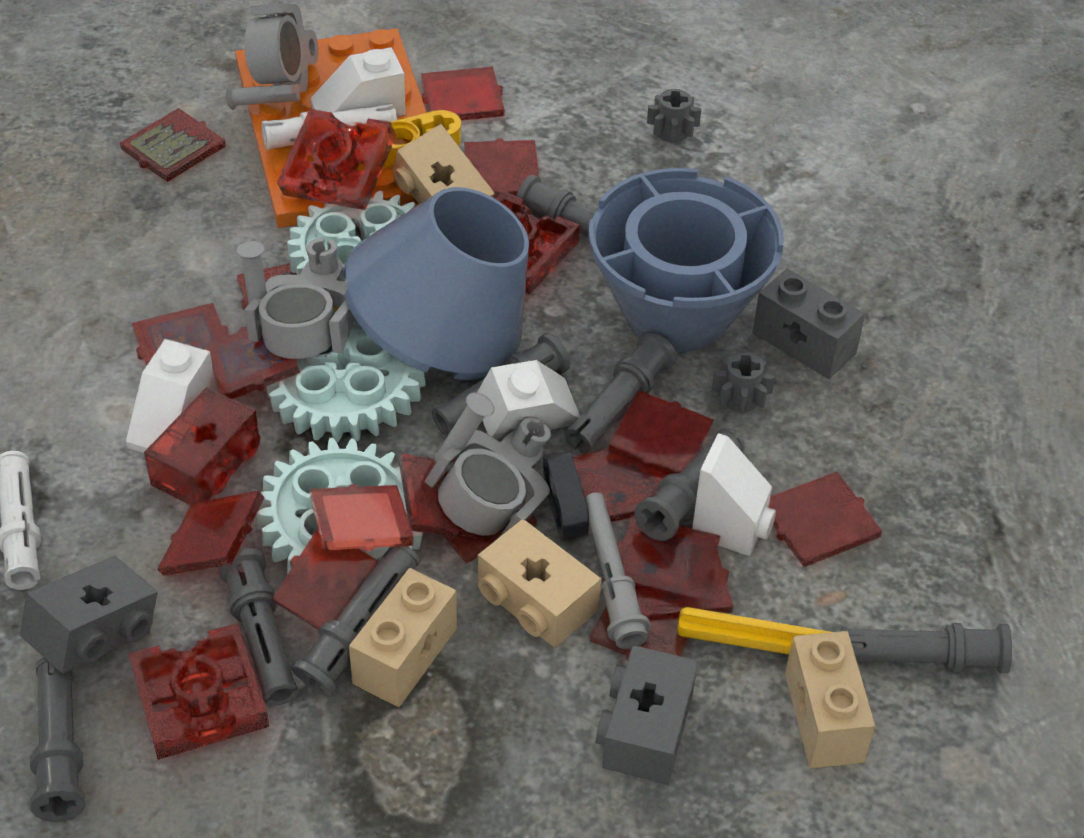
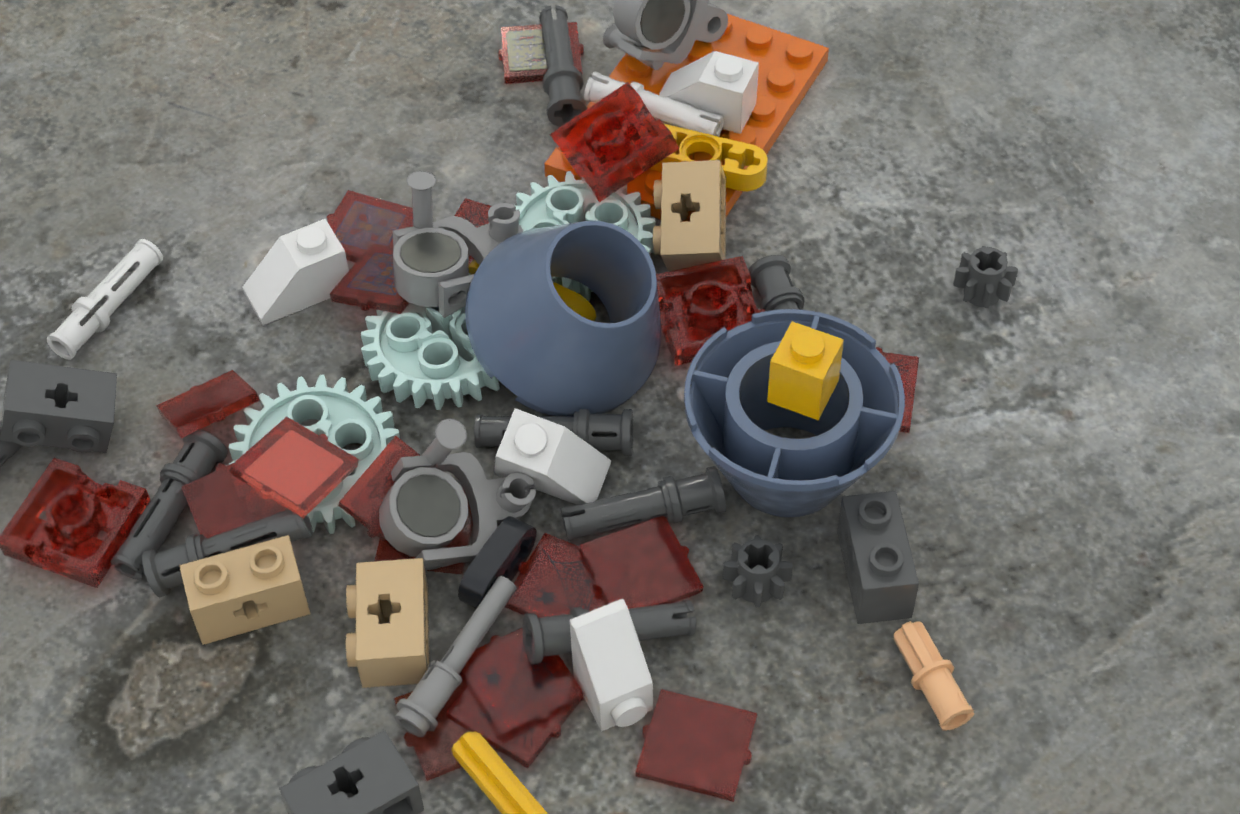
camera: 45 degrees right, 5 degrees up
(203, 447) = (278, 329): clear red brick -> none
(222, 149) = (562, 79): none -> dark grey pin
(465, 92) = (825, 144): clear red piece -> none
(503, 163) = (783, 229): clear red piece -> none
(692, 205) = (805, 370): none -> yellow brick
(914, 373) = (933, 675): none -> light nougat axle

